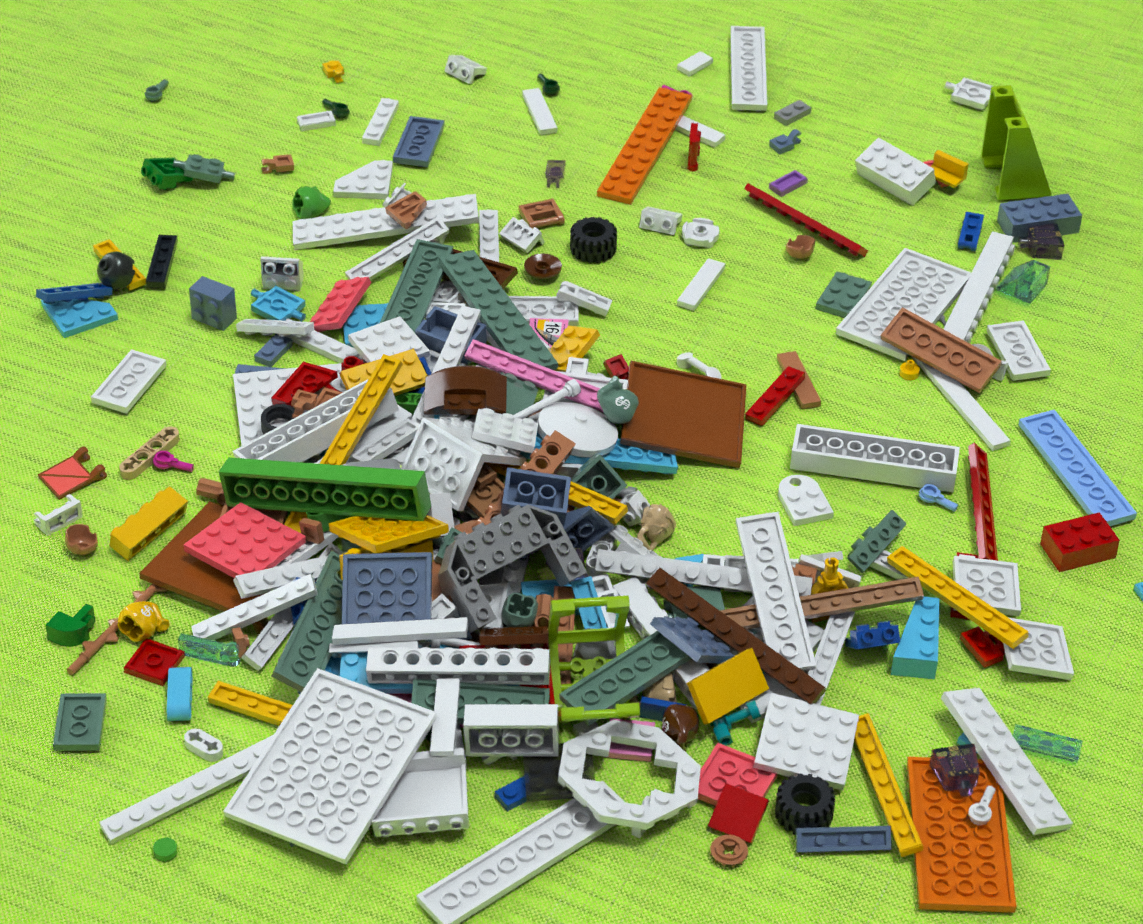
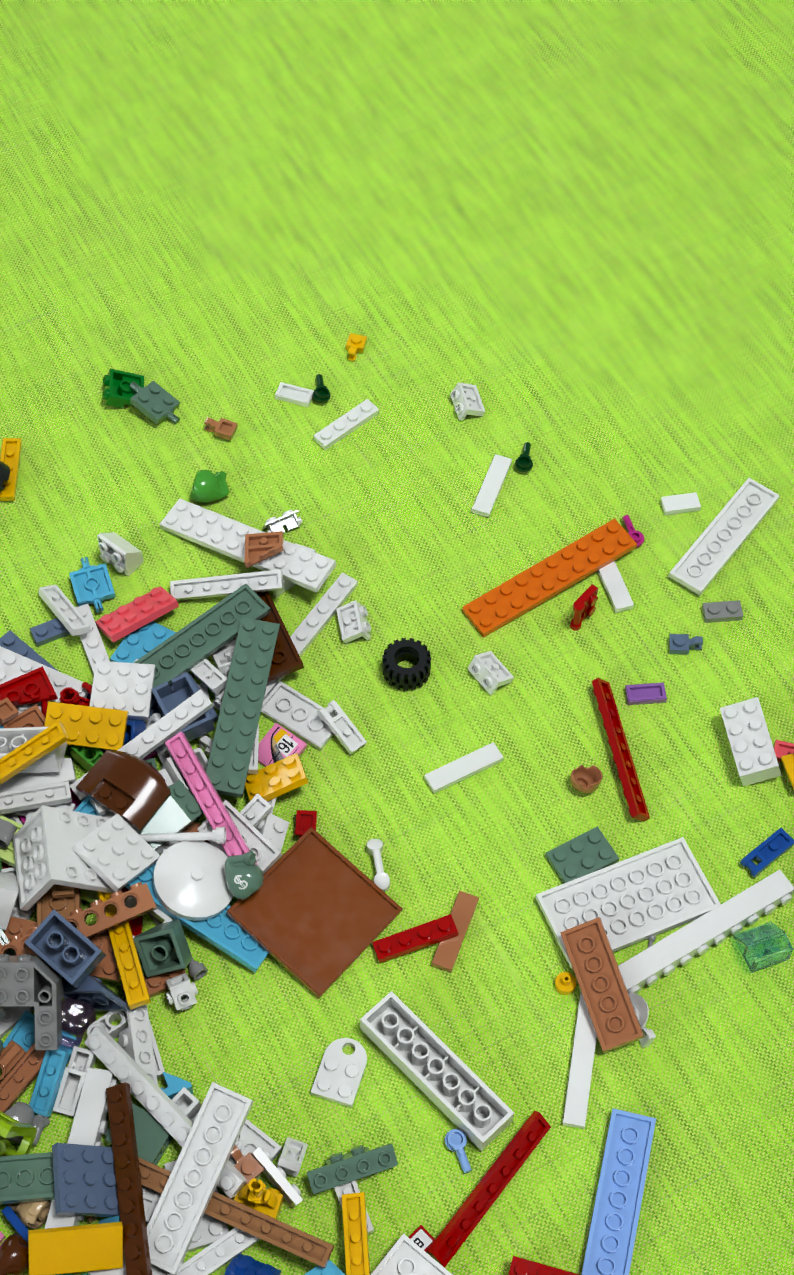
camera: 35 degrees right, 15 degrees up
(154, 92) = (189, 294): sand green plate -> none
(161, 261) = (43, 484): black plate -> none
(213, 303) = (34, 557): brick -> none
(366, 182) = (279, 487): white plate -> none
(418, 141) = (357, 465): sand blue plate -> none
(540, 210) = (391, 601): nougat plate -> none
(542, 266) = (340, 661): reddish brown dish -> none
(554, 171) = (443, 564): plate -> none
(656, 524) = (180, 1024): tan piece -> none
(692, 233) = (507, 716): white plate -> none
(1019, 349) = (686, 1024): white plate -> none

